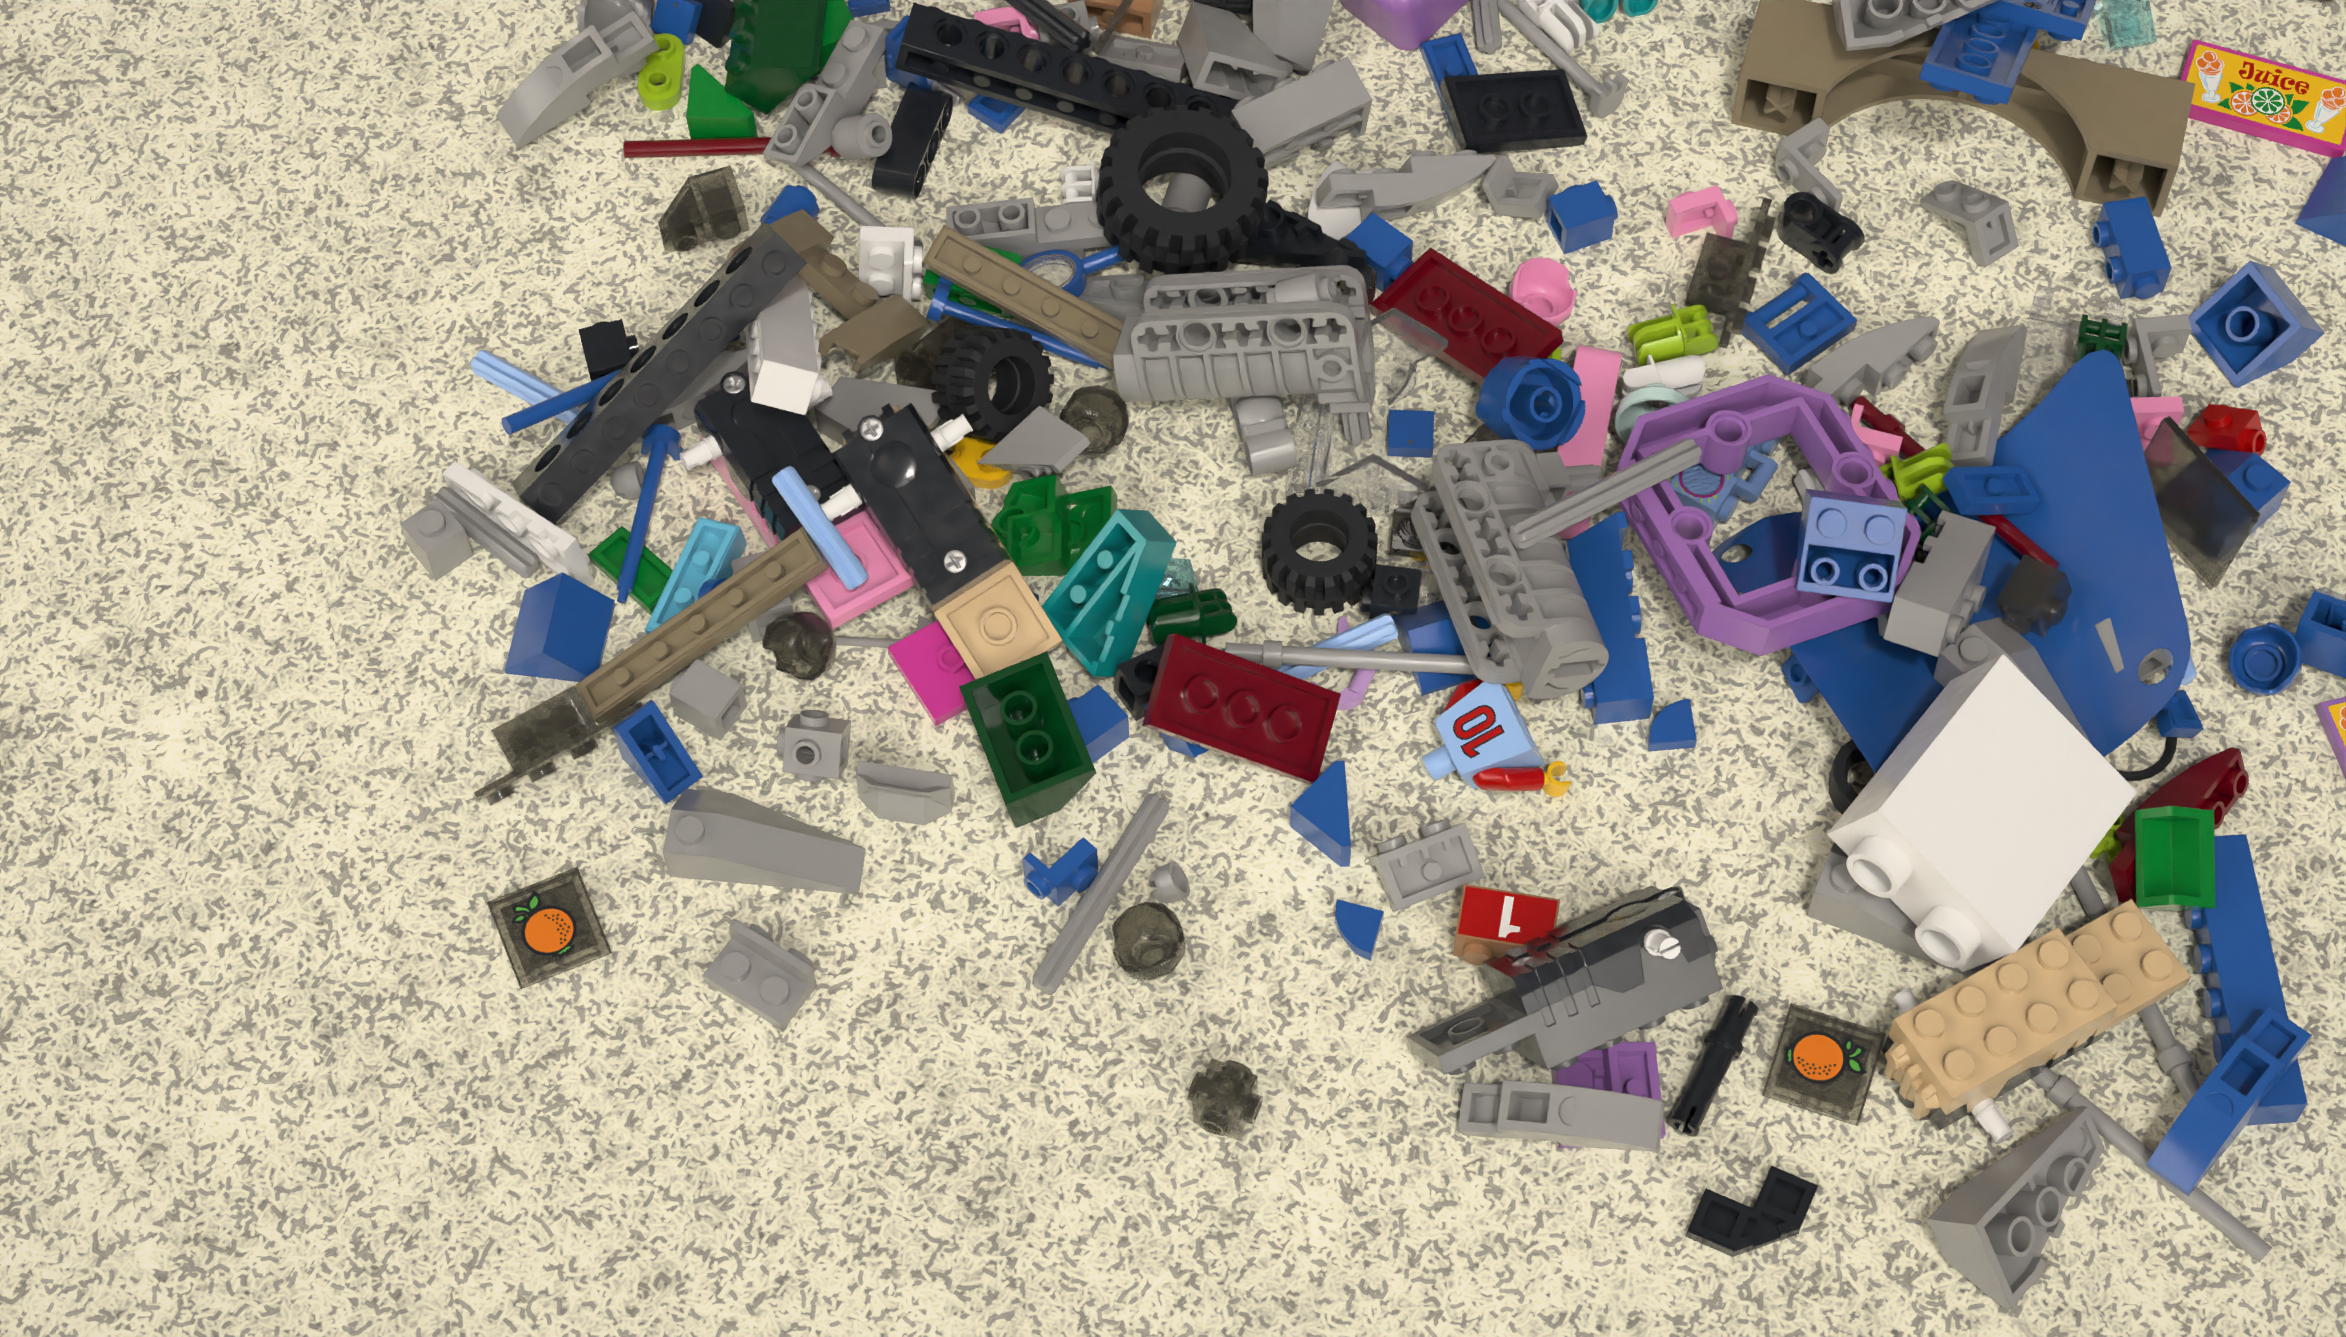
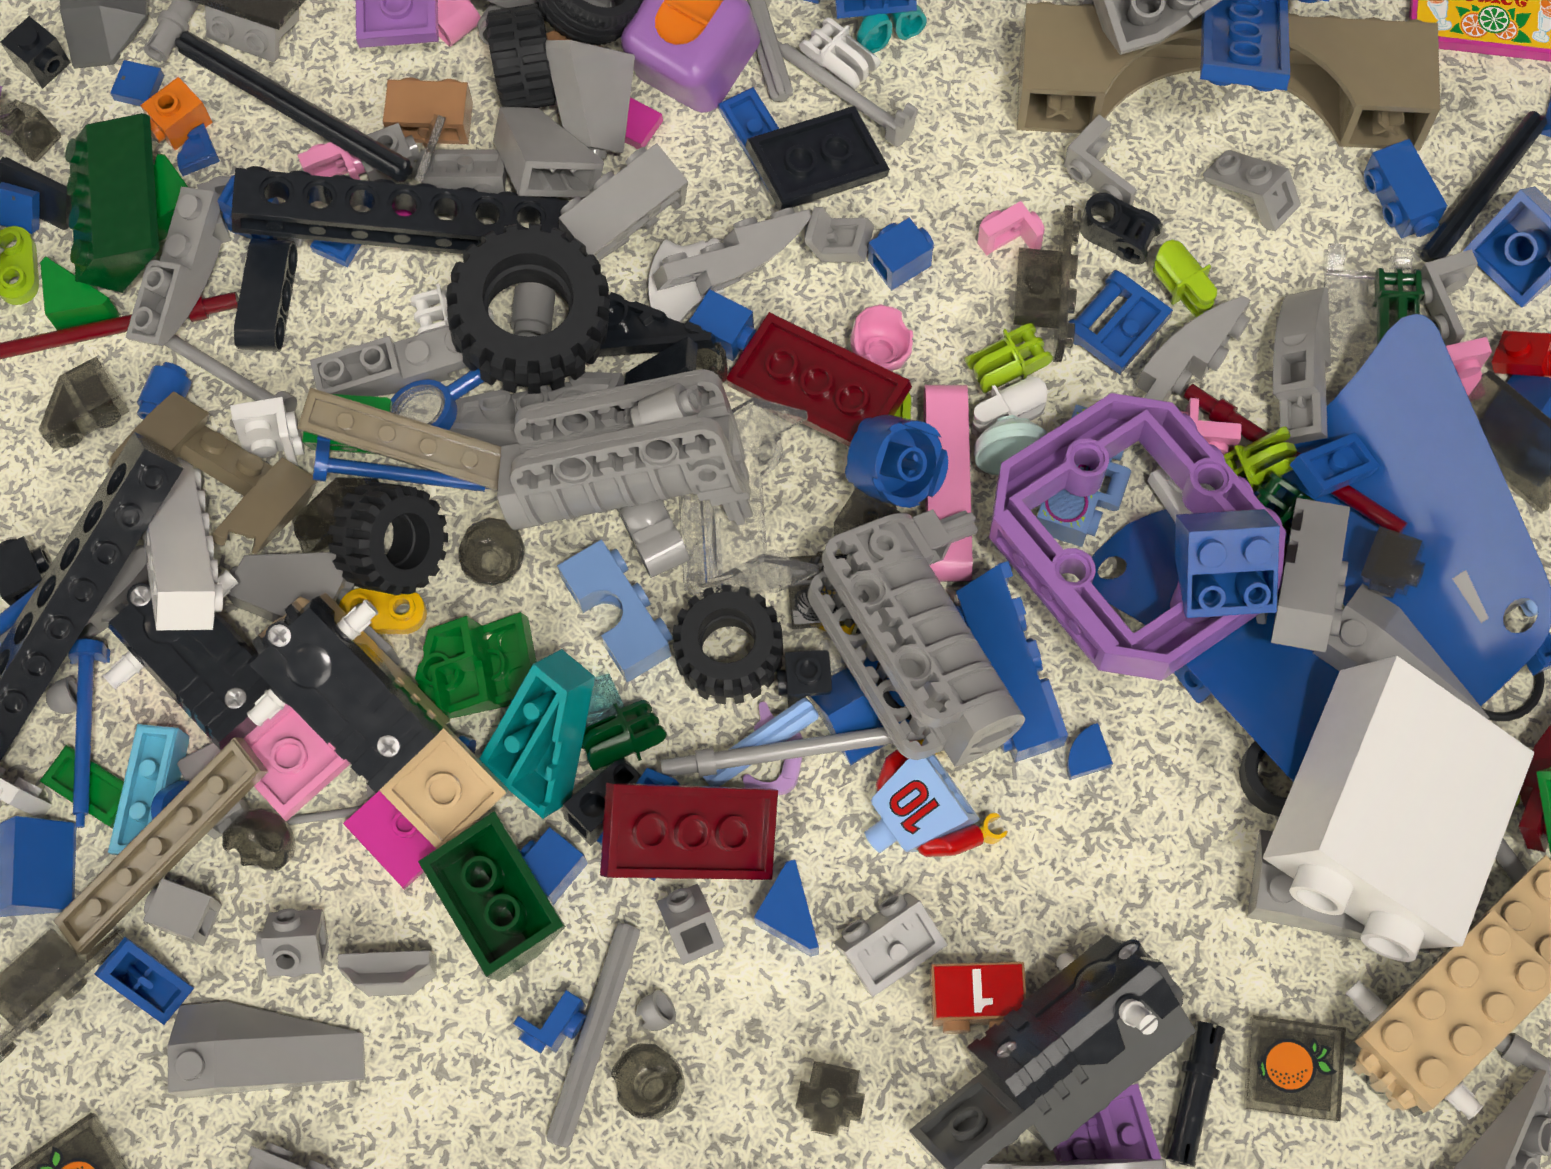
camera: 10 degrees left, 10 degrees up
(820, 528) = (255, 738): light blue axle -> none
(861, 136) = (215, 303): light grey brick -> none
(1037, 446) = (444, 593): light grey slope -> none
(1199, 468) = (598, 578): none -> medium blue arch
(1223, 801) = (690, 923): none -> light grey brick
(1332, 992) = (834, 1081): none -> clear smoke brick
(1336, 45) = (641, 124): none -> dark pink tile
(1358, 927) = (840, 1018): blue tile -> none
(1410, 433) = (787, 501): blue tile -> none
(1604, 493) = (989, 558): light grey axle -> none
(1875, 289) = (1185, 277): none -> lime arm
(2224, 260) = (1484, 187): none -> black axle

